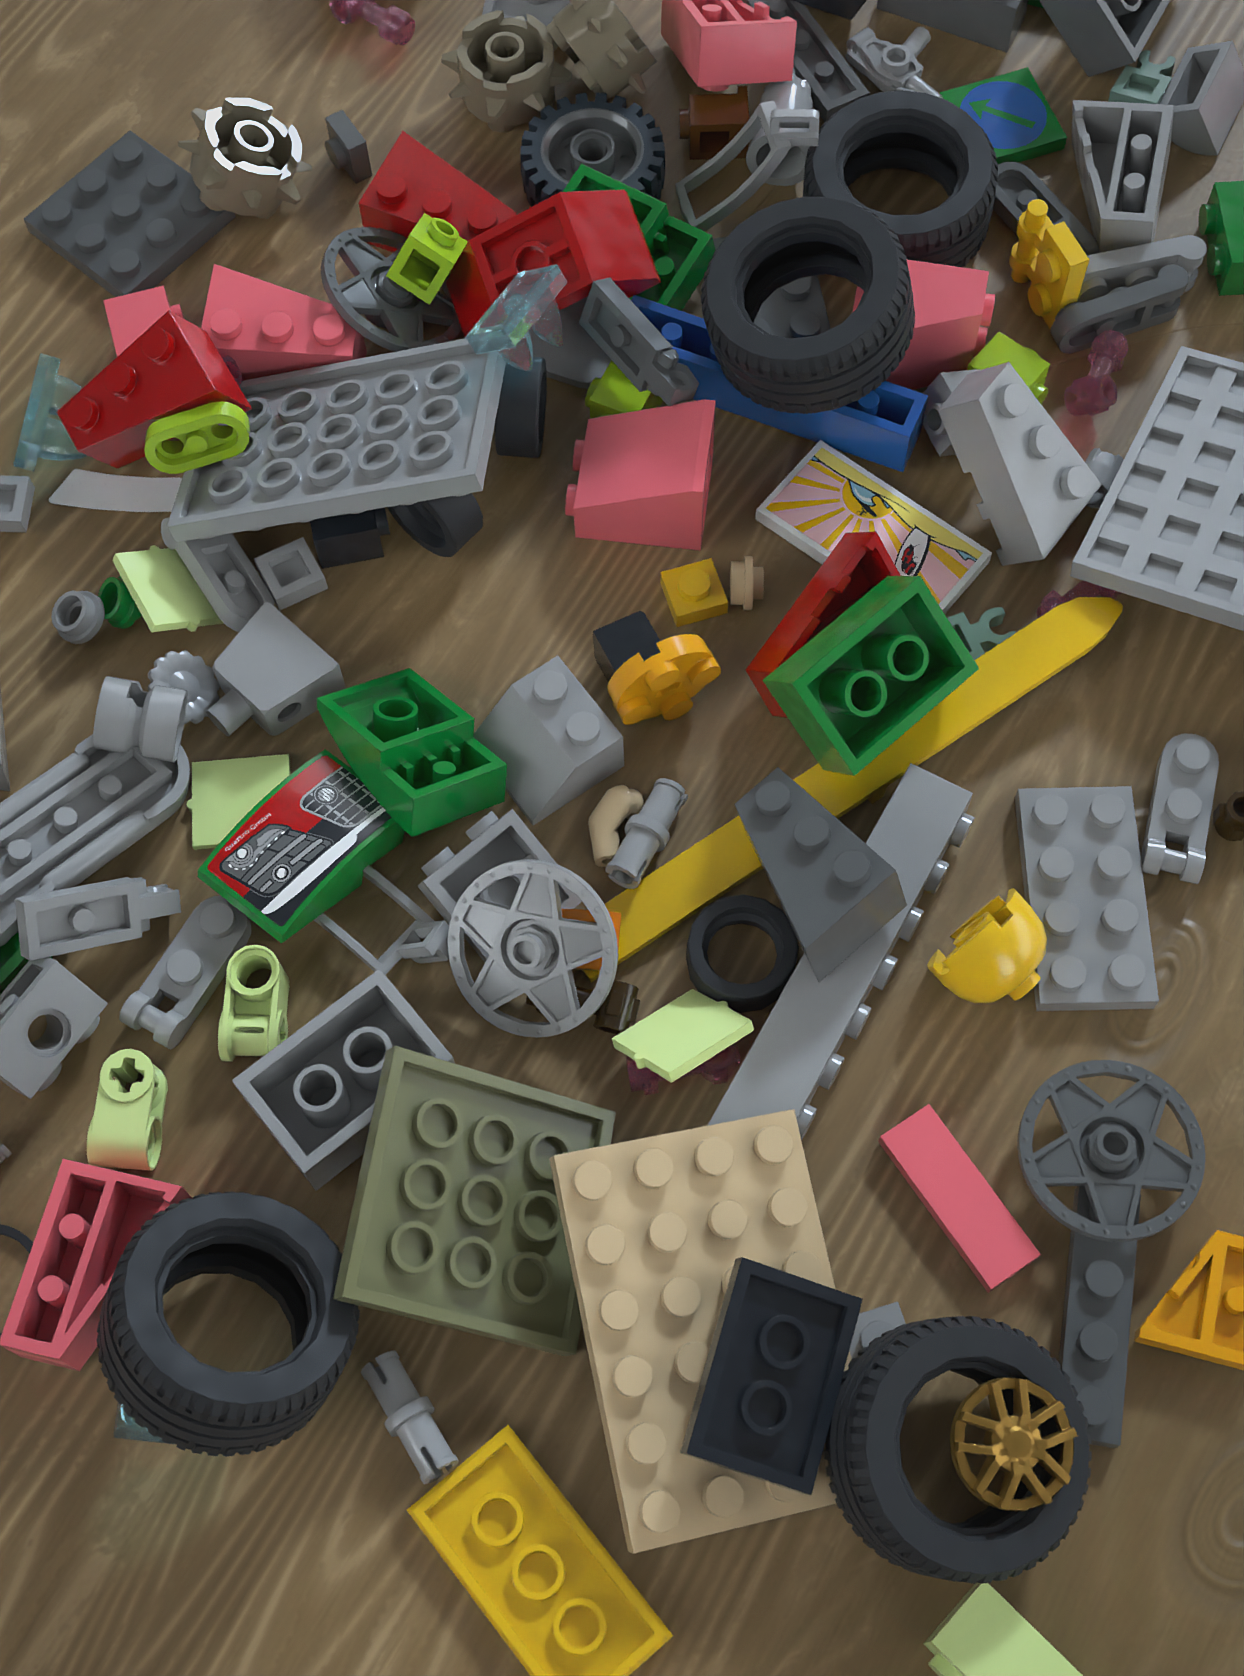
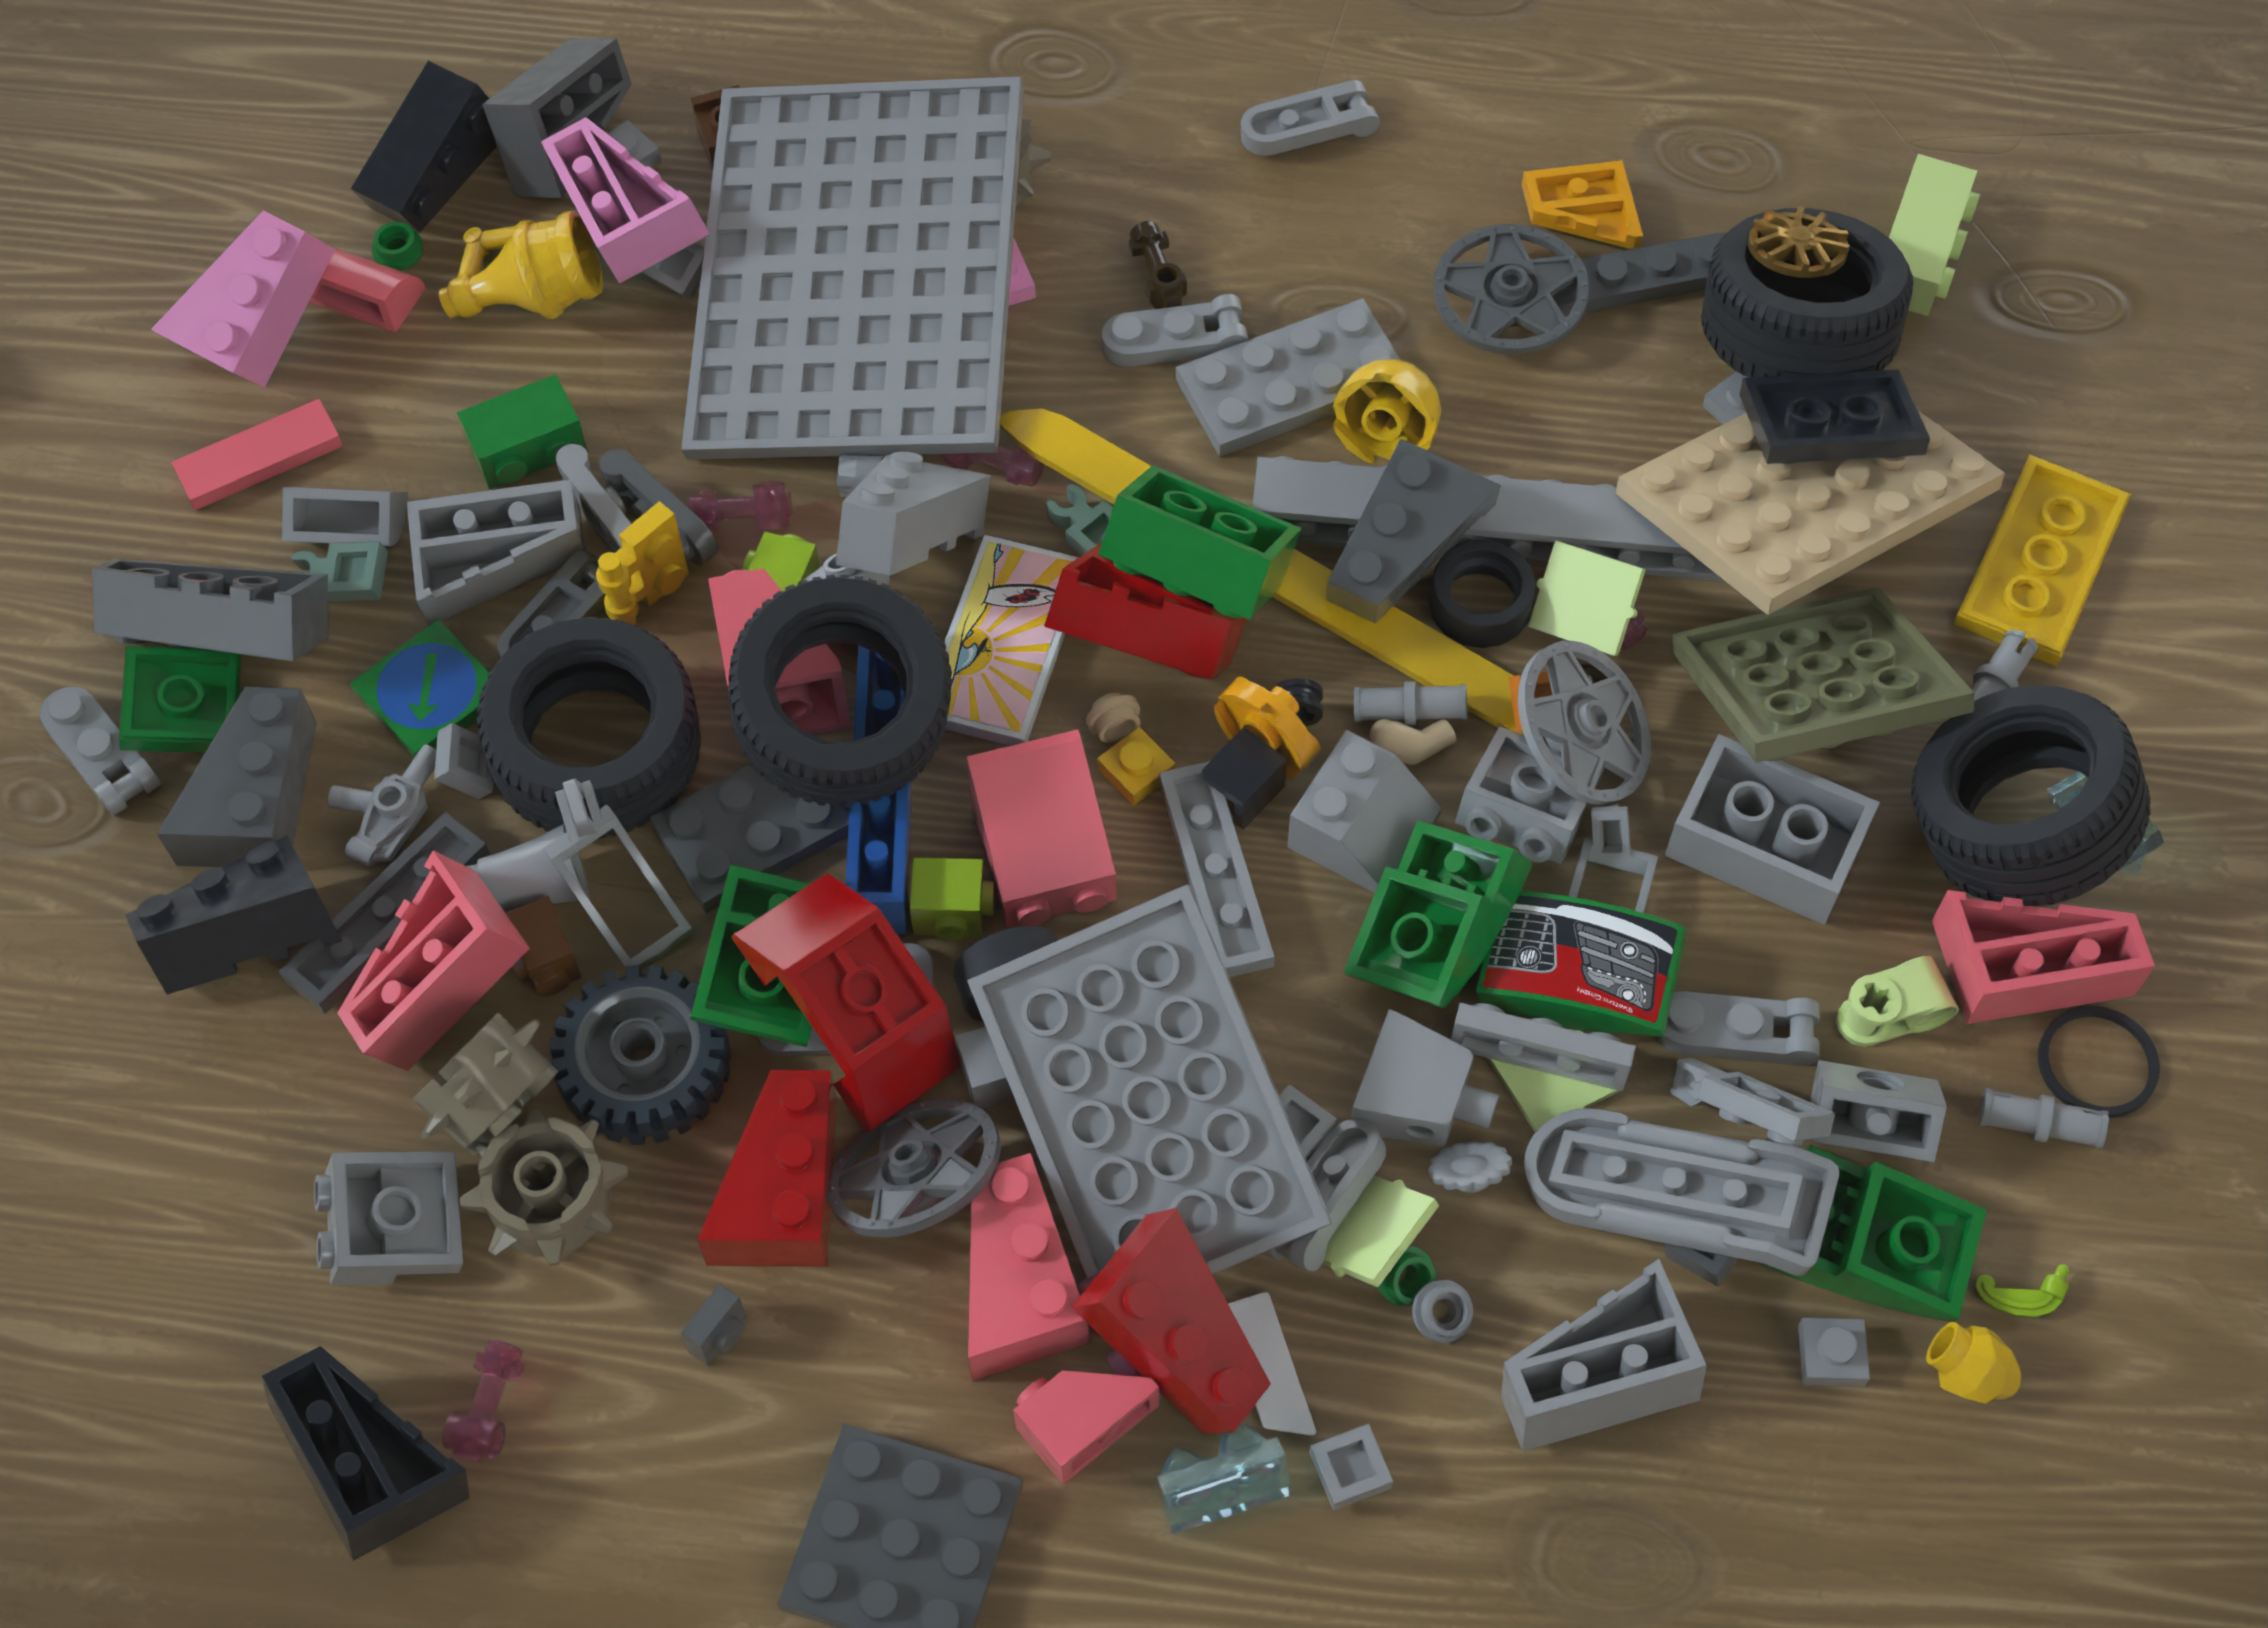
camera: 115 degrees left, 5 degrees down
(140, 718) = (1543, 1154): light grey wheel -> none
(199, 437) = (1223, 1256): lime plate -> none
(244, 158) = (796, 1408): dark tan brick -> none
(249, 780) = (1543, 1045): none -> light grey plate
(257, 1017) = (1753, 940): yellowish green piece -> none
(427, 257) = (876, 1125): lime brick -> none
(522, 306) = (952, 953): clear light blue tile -> none
(546, 604) = (1216, 869): none -> light grey plate
(635, 344) = (925, 856): dark grey hinge -> none
(692, 738) = (1308, 696): none -> black bush
(959, 1198) = (1597, 386): coral tile -> none

